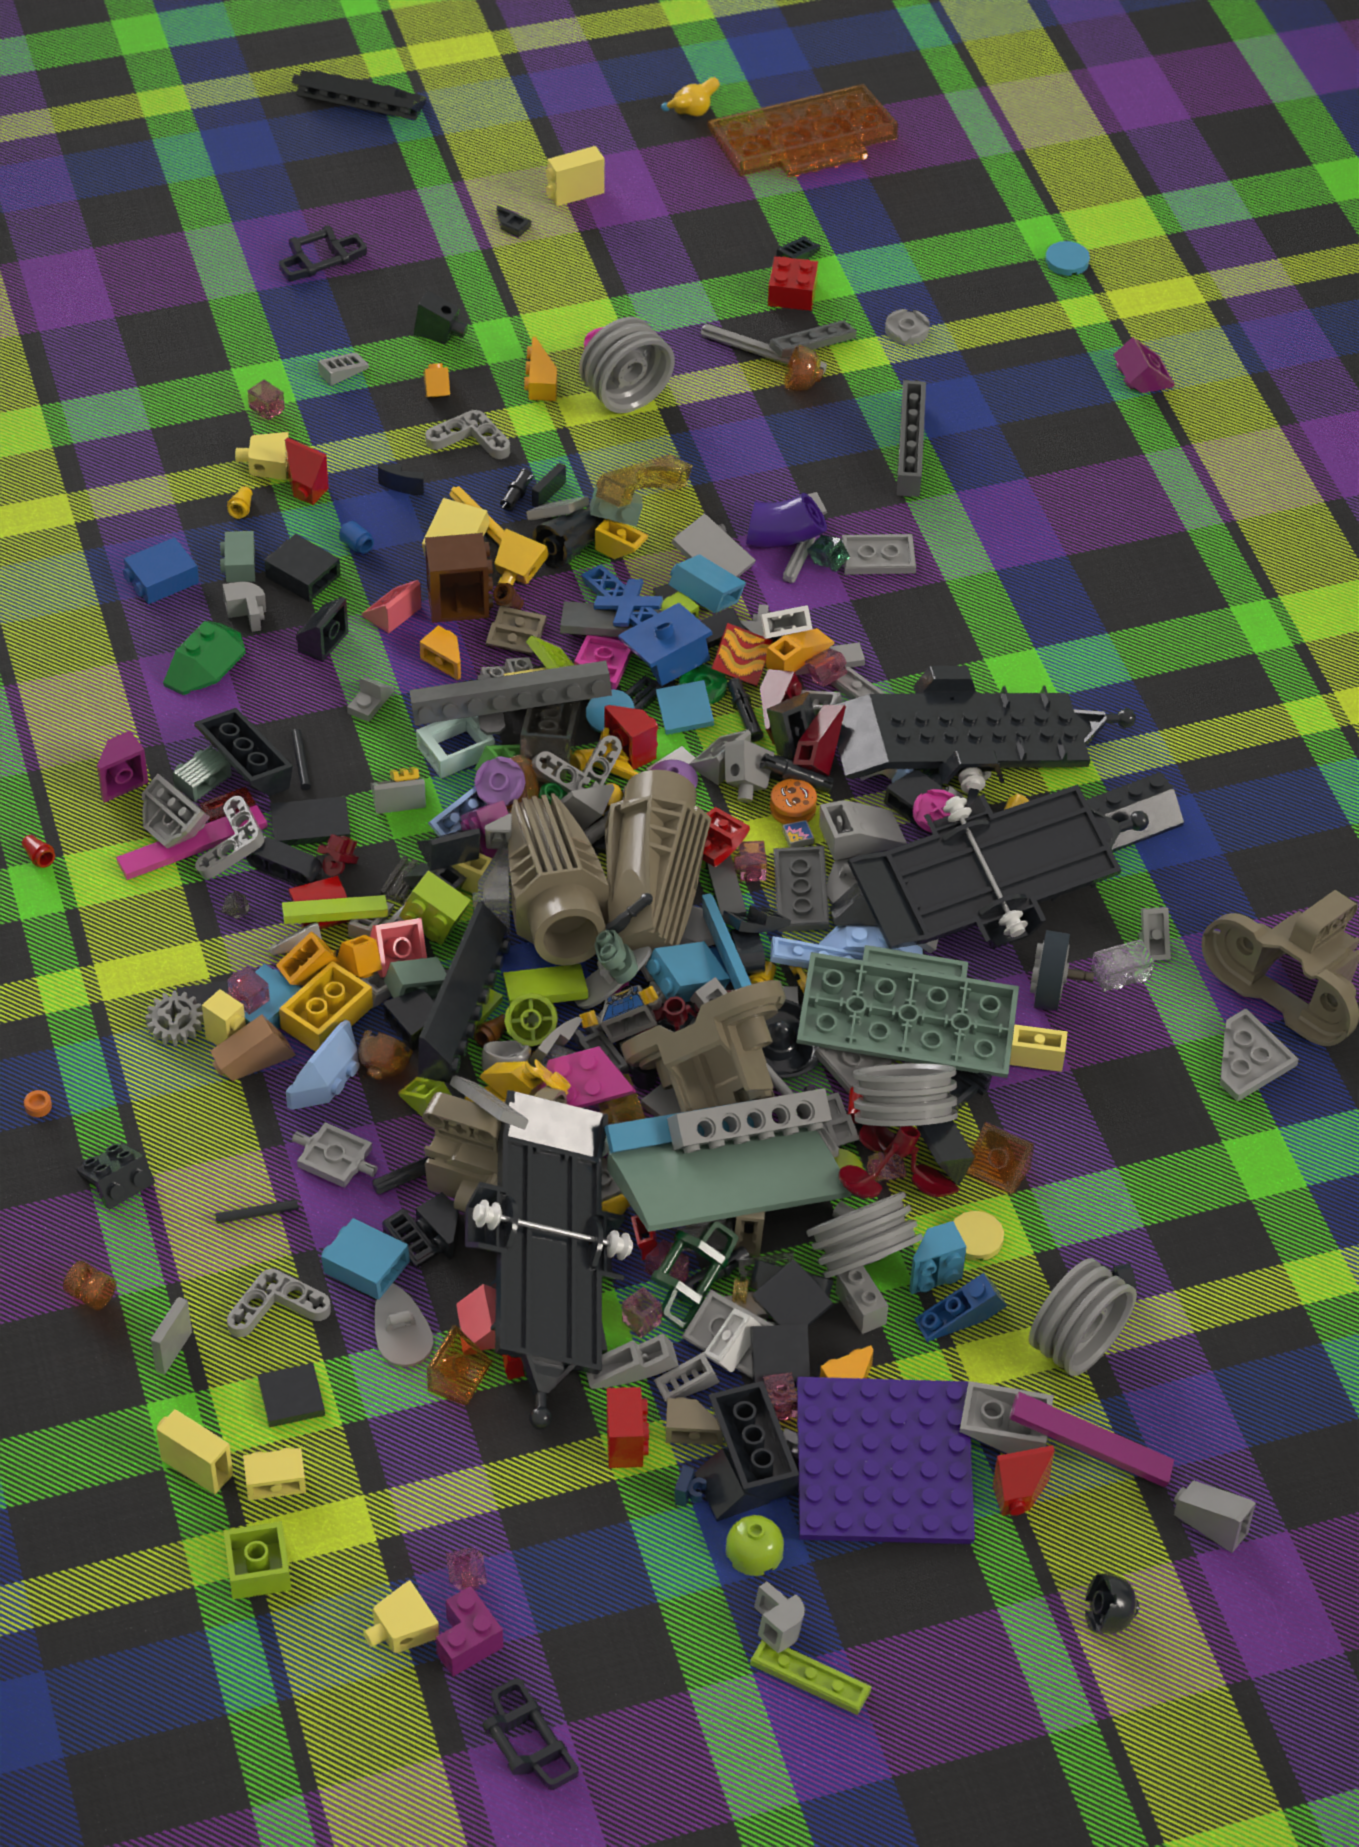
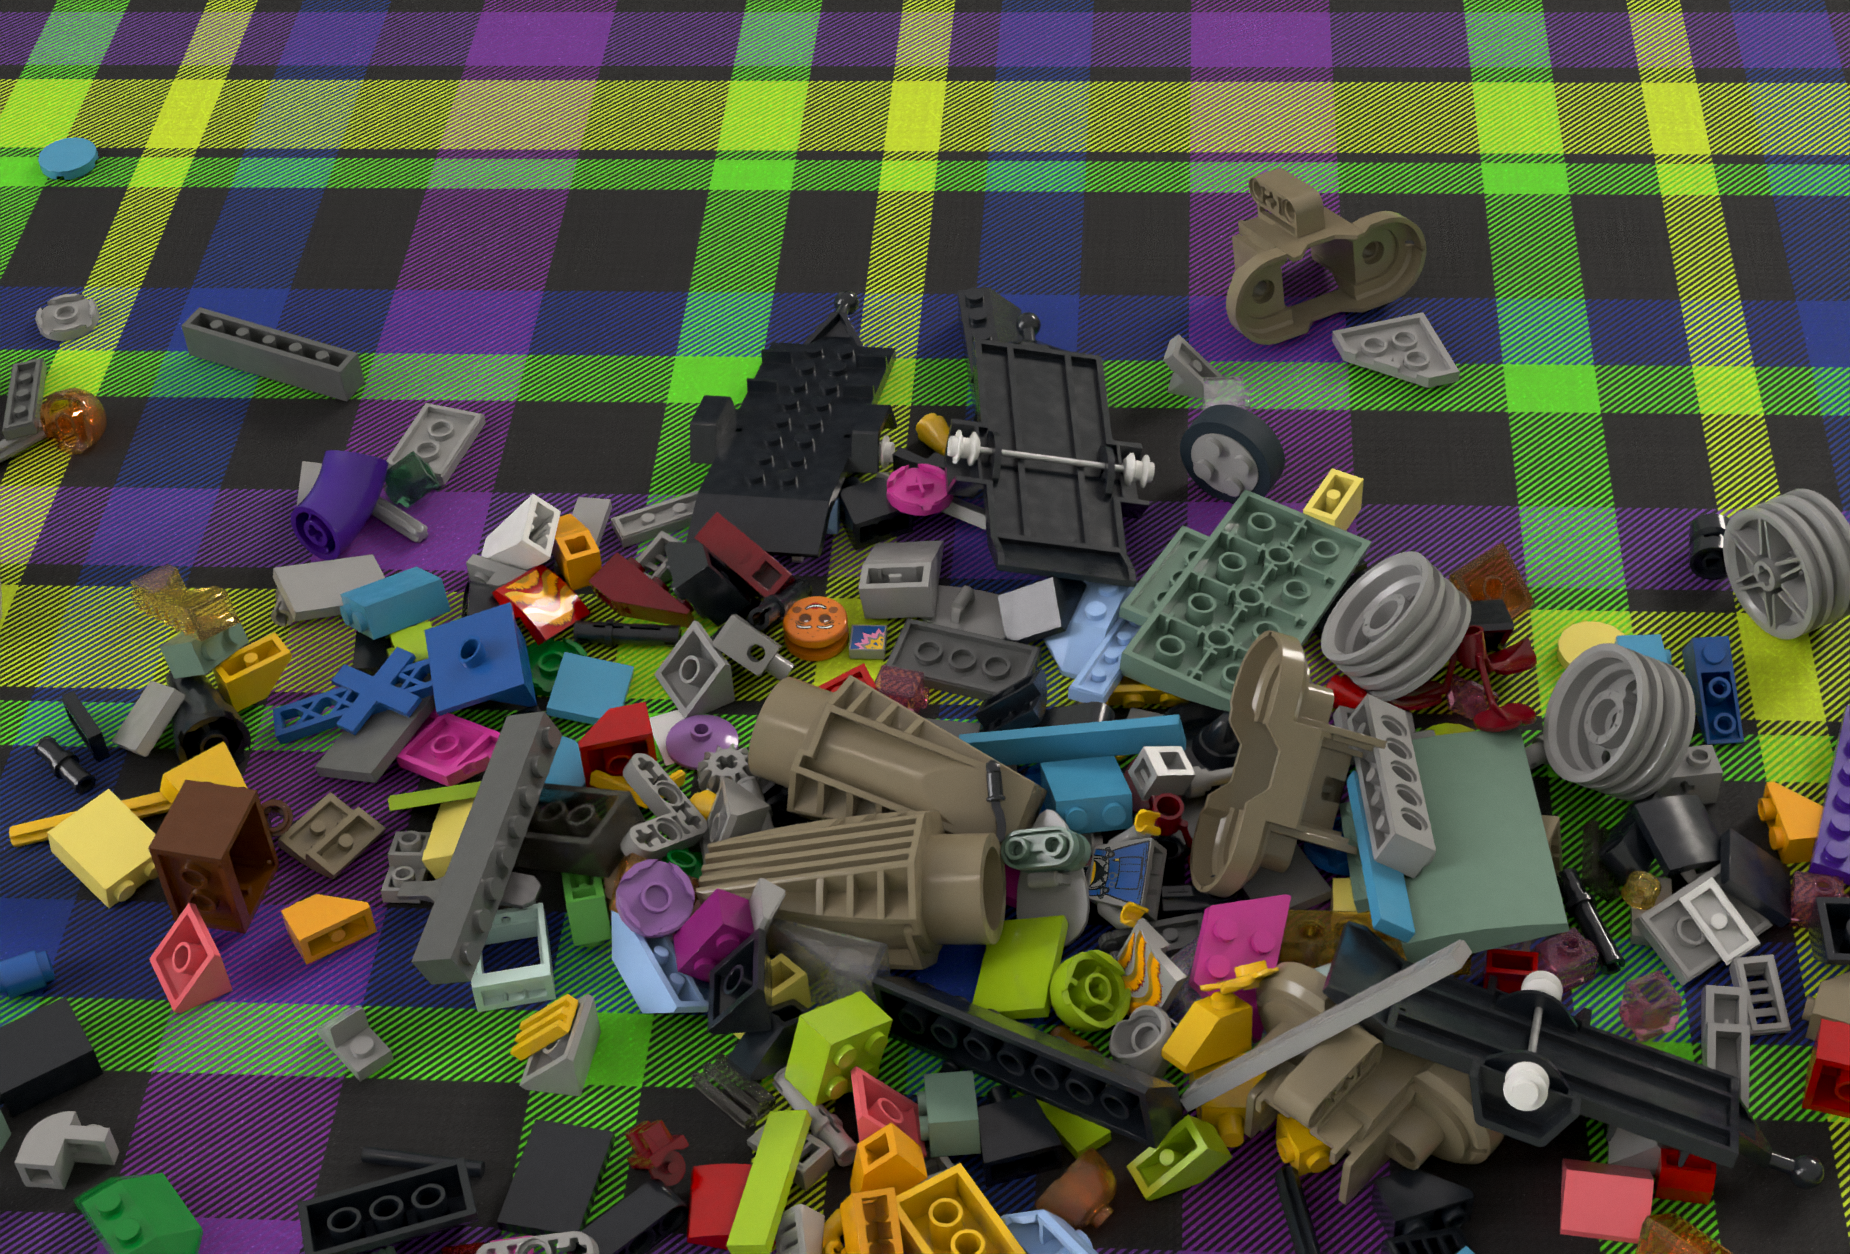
camera: 65 degrees left, 5 degrees down
(324, 630) = (189, 1056): black slope -> none
(676, 1287) = (1634, 951): dark green bar -> none
(826, 667) = (612, 529): clear pink brick -> none
(1142, 367) = (299, 145): magenta slope -> none

